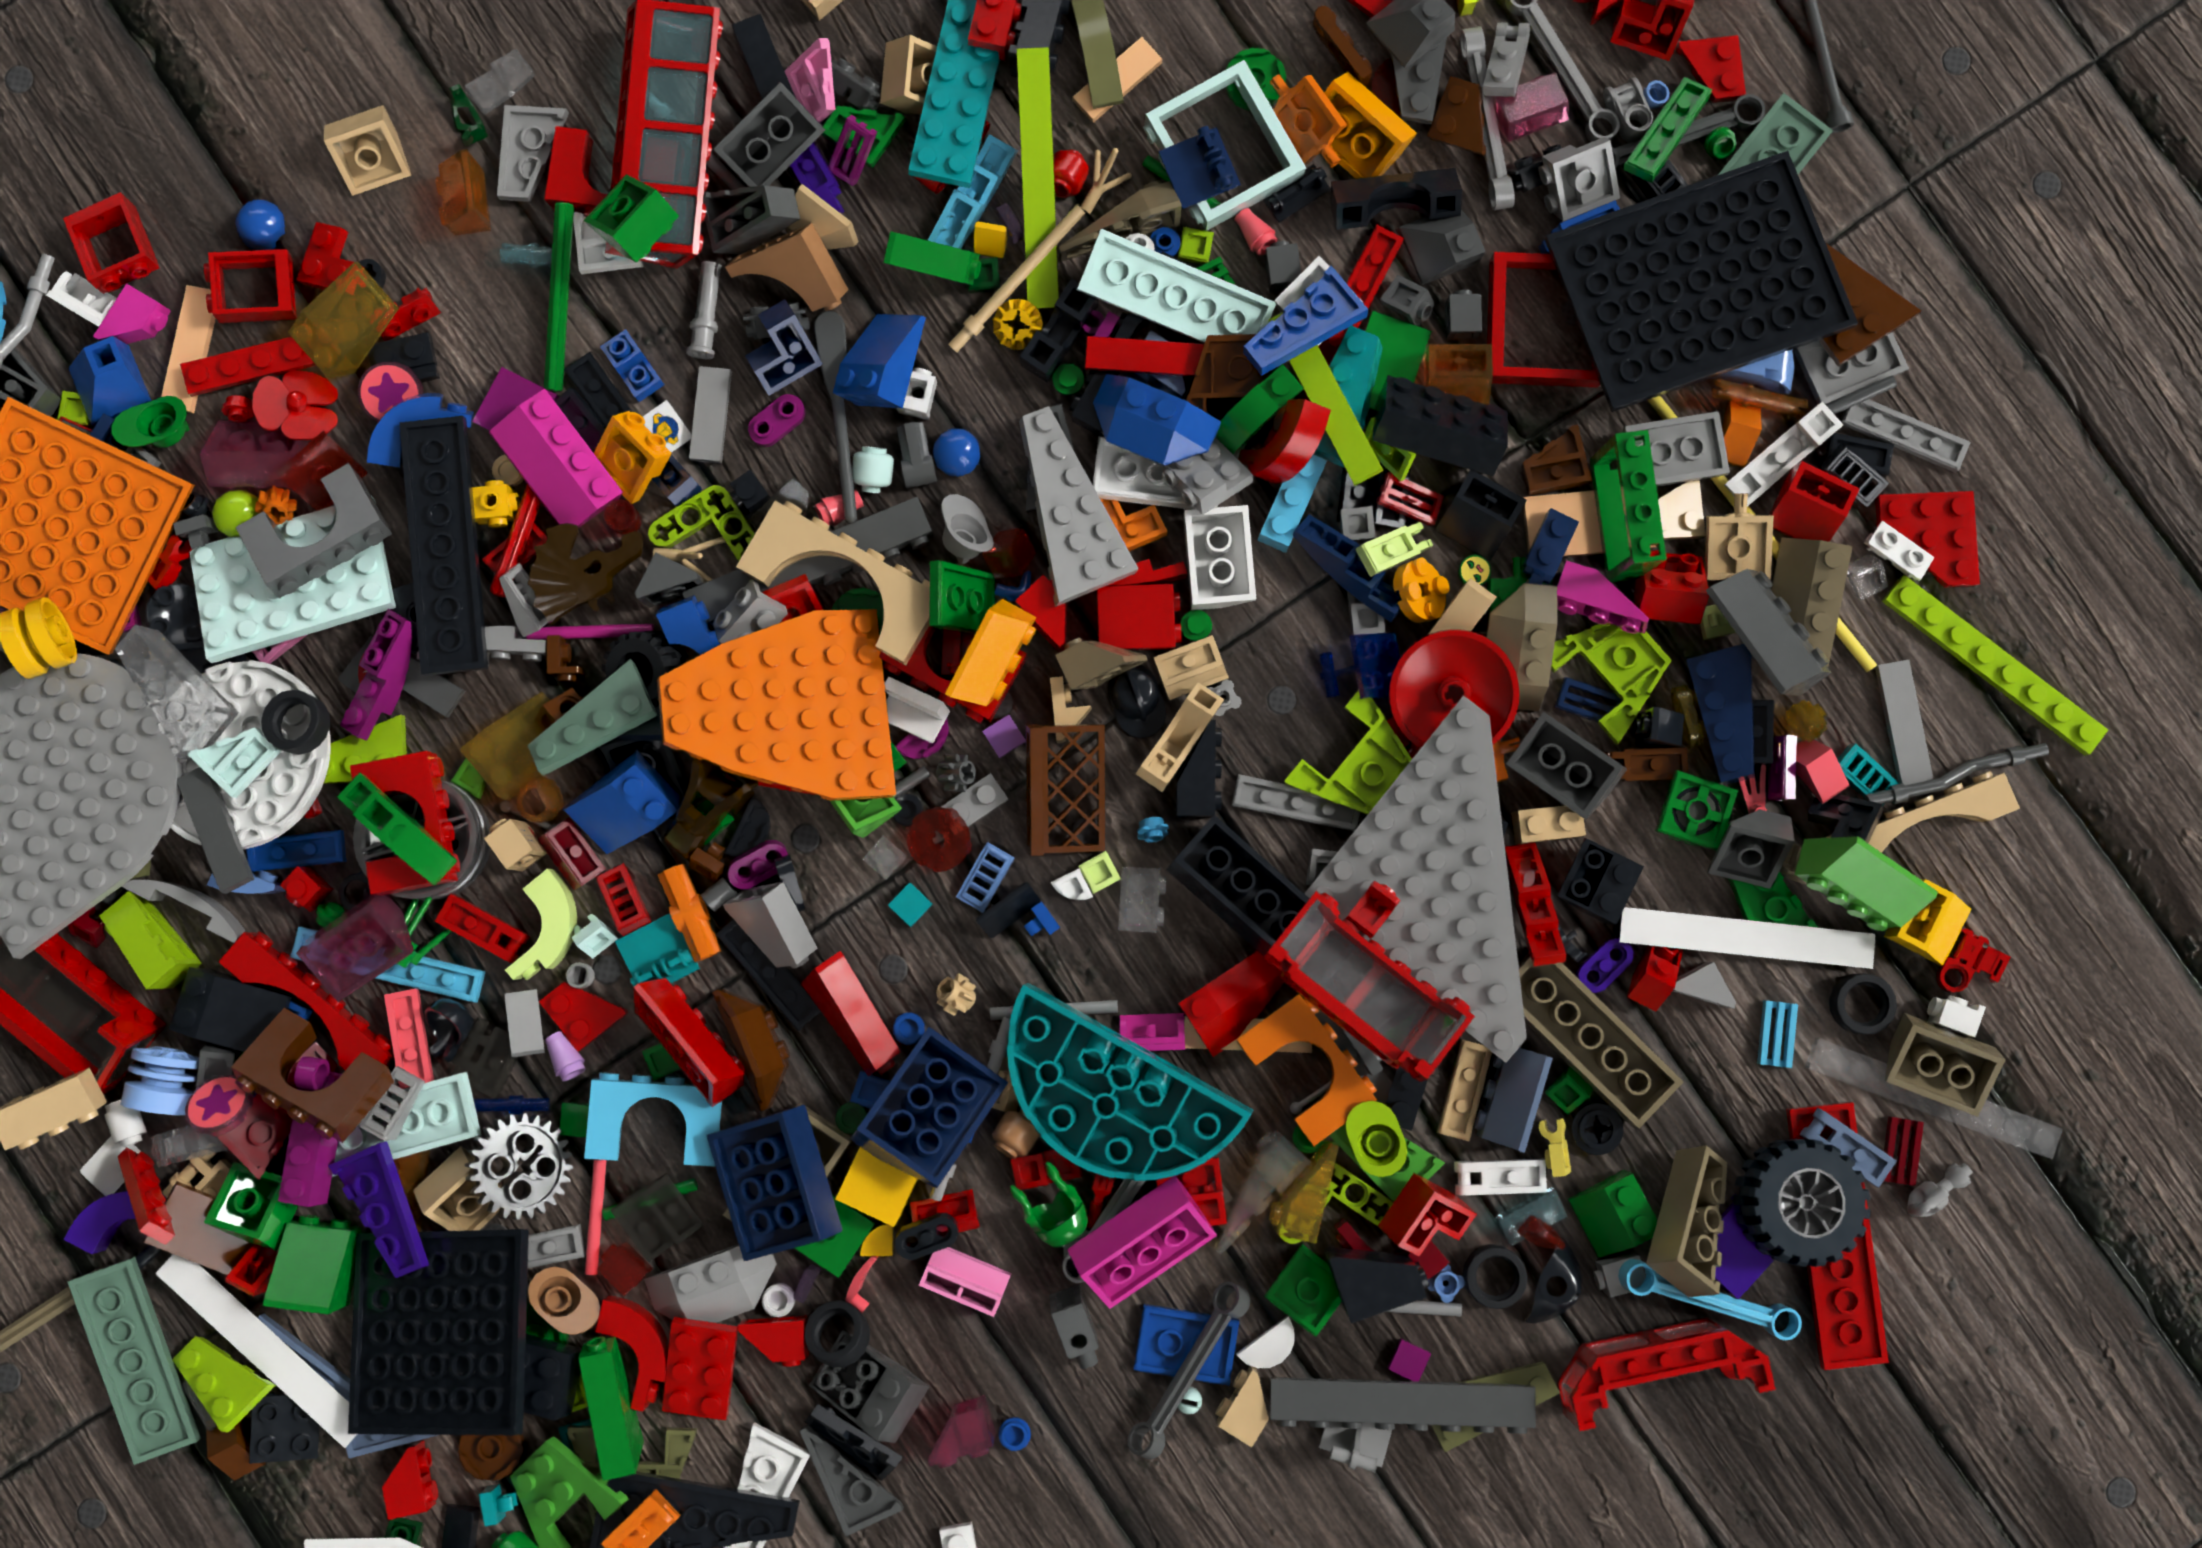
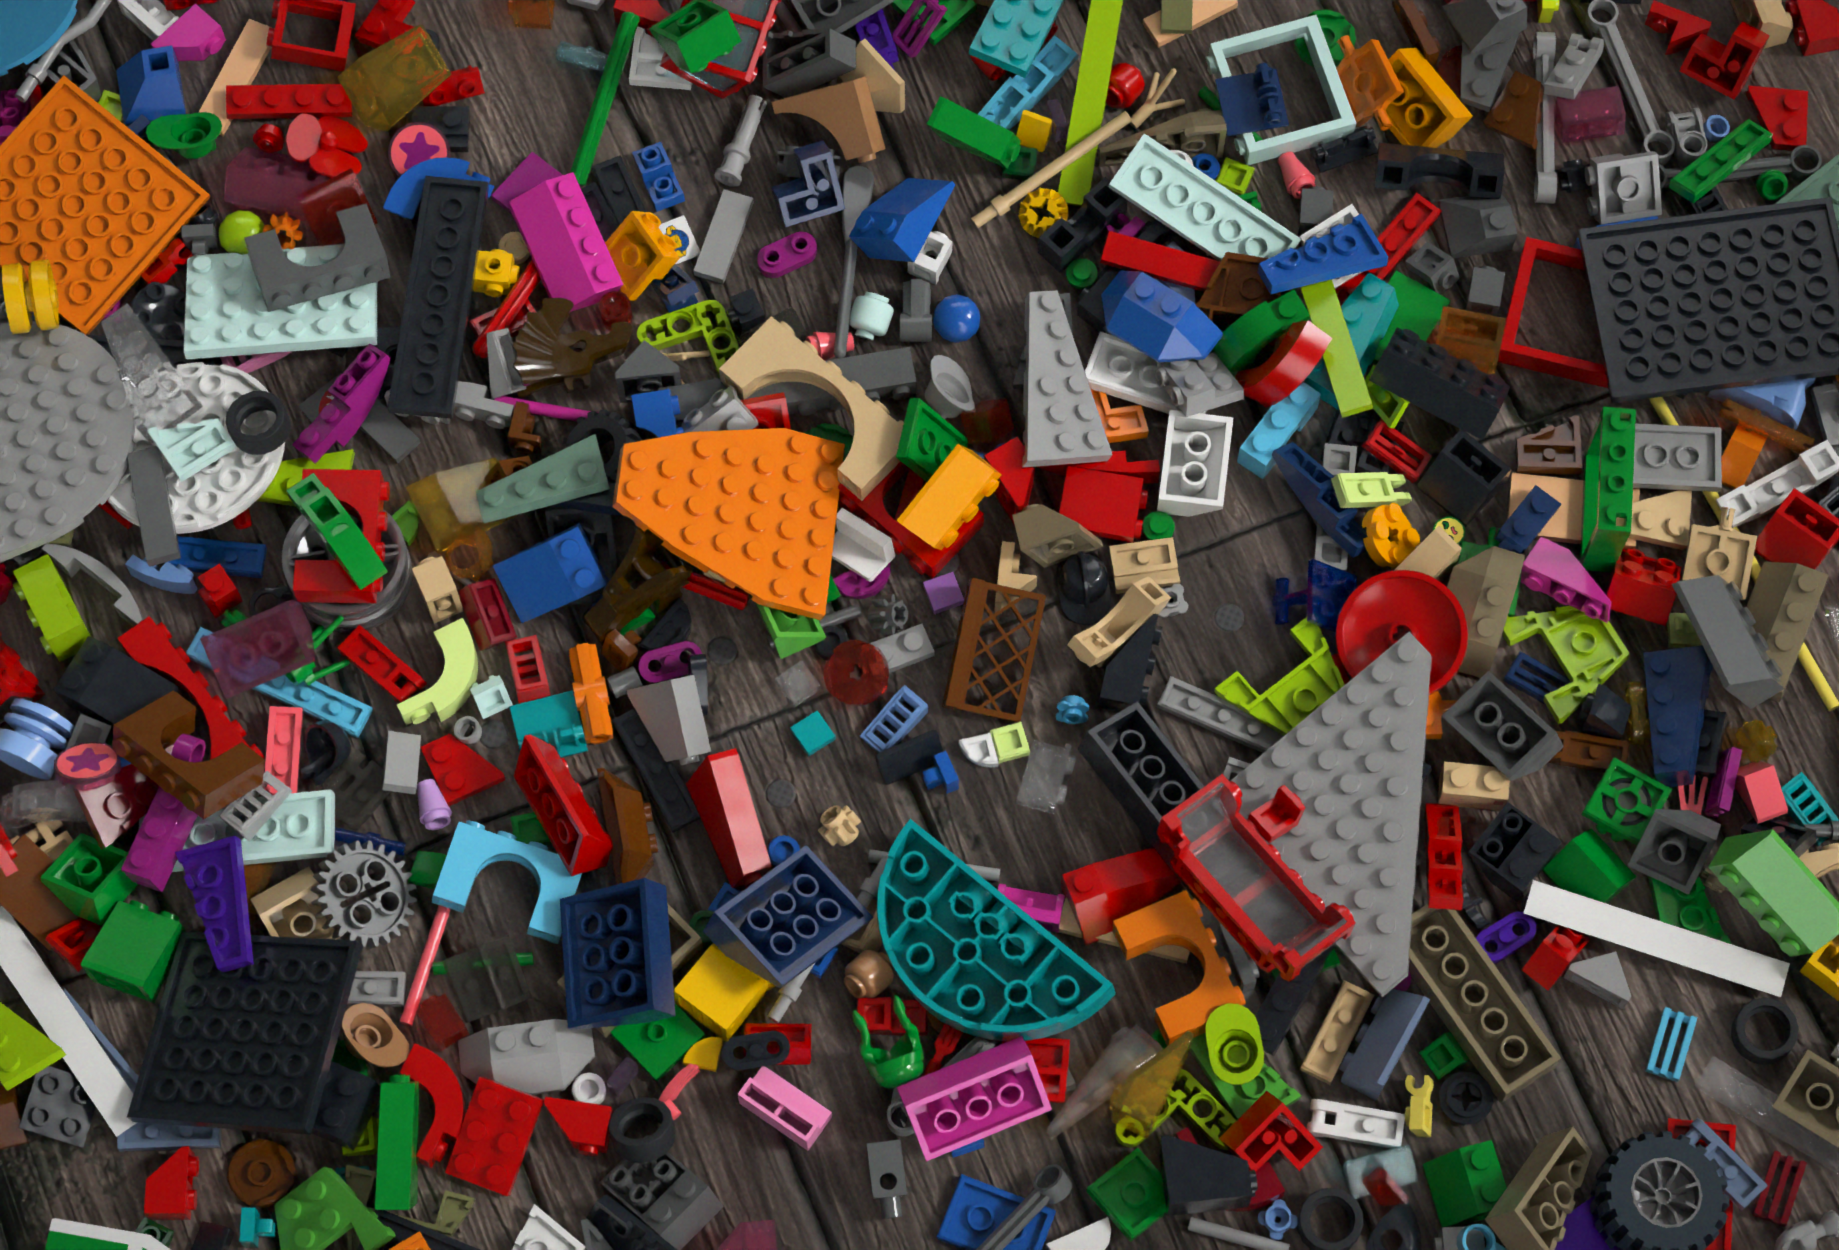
camera: 10 degrees right, 15 degrees down
(1672, 881) = (1589, 869): none -> green slope

